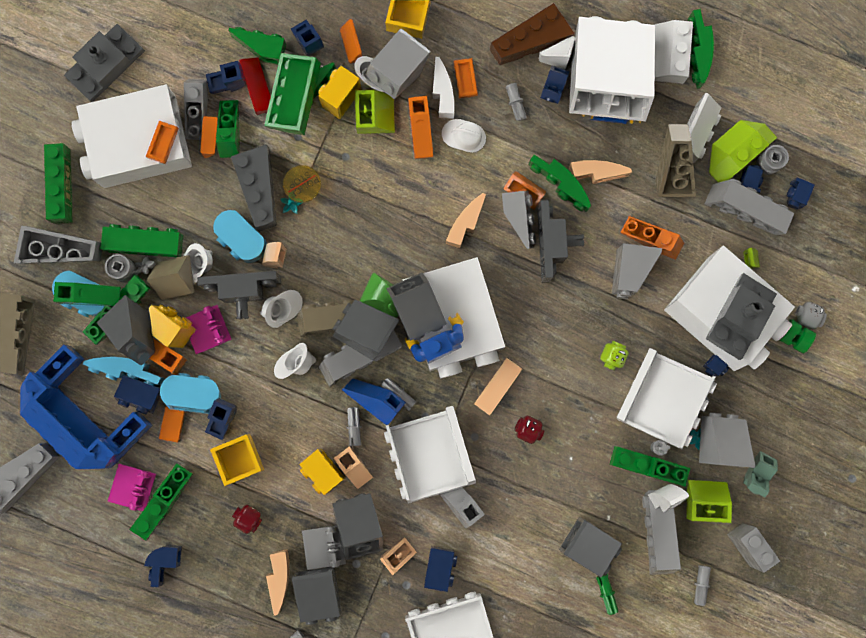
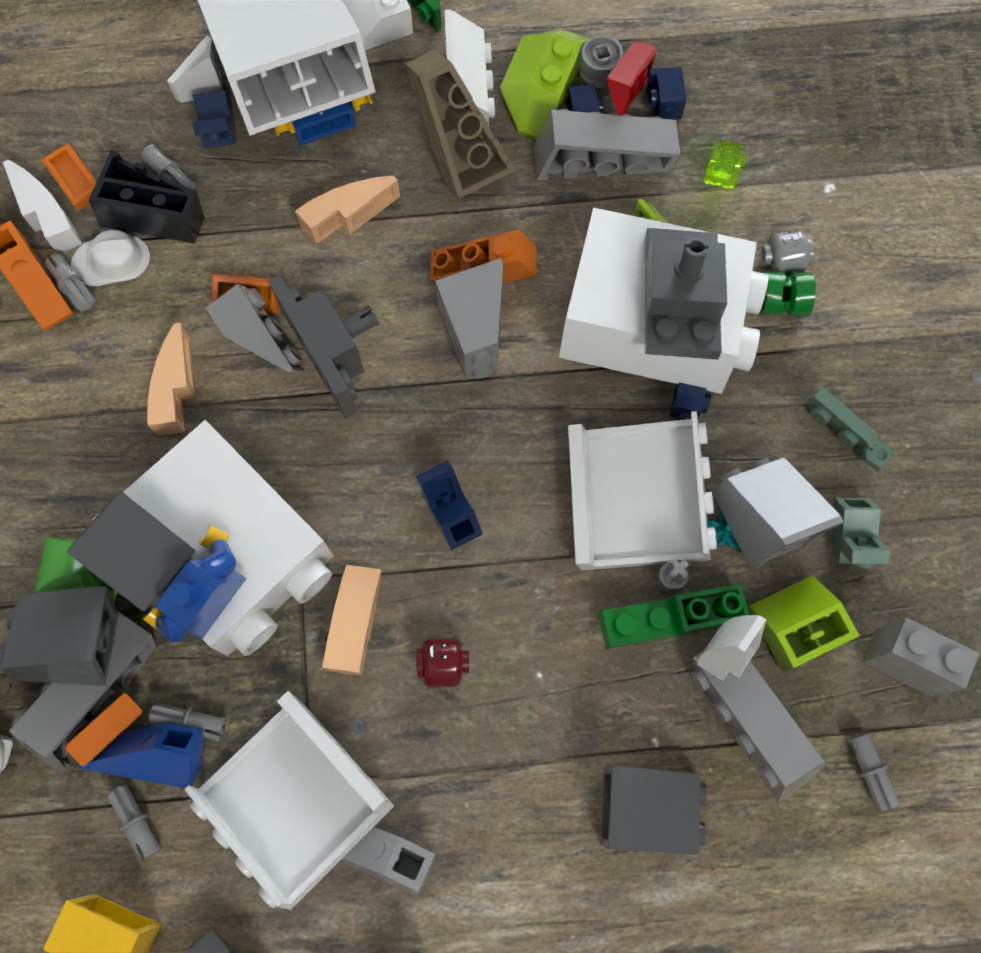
camera: 25 degrees left, 10 degrees down
(353, 467) = (160, 897): light nougat slope -> none
(361, 379) = (103, 729): none -> orange slope
(439, 140) = (70, 283): none -> light grey axle
(497, 116) = (143, 203): none -> black wedge
(532, 36) = (141, 69): reddish brown wedge -> none
(569, 186) = (309, 249): green slope -> none
(571, 356) = (449, 505): none -> dark blue brick
(607, 594) = (726, 879): green axle -> none
(614, 355) = (519, 468): lime head -> none
(785, 175) = (630, 75): none -> red slope
(788, 422) = (850, 428): none -> sand green hinge
(808, 247) = (725, 163): none -> clear neon green slope

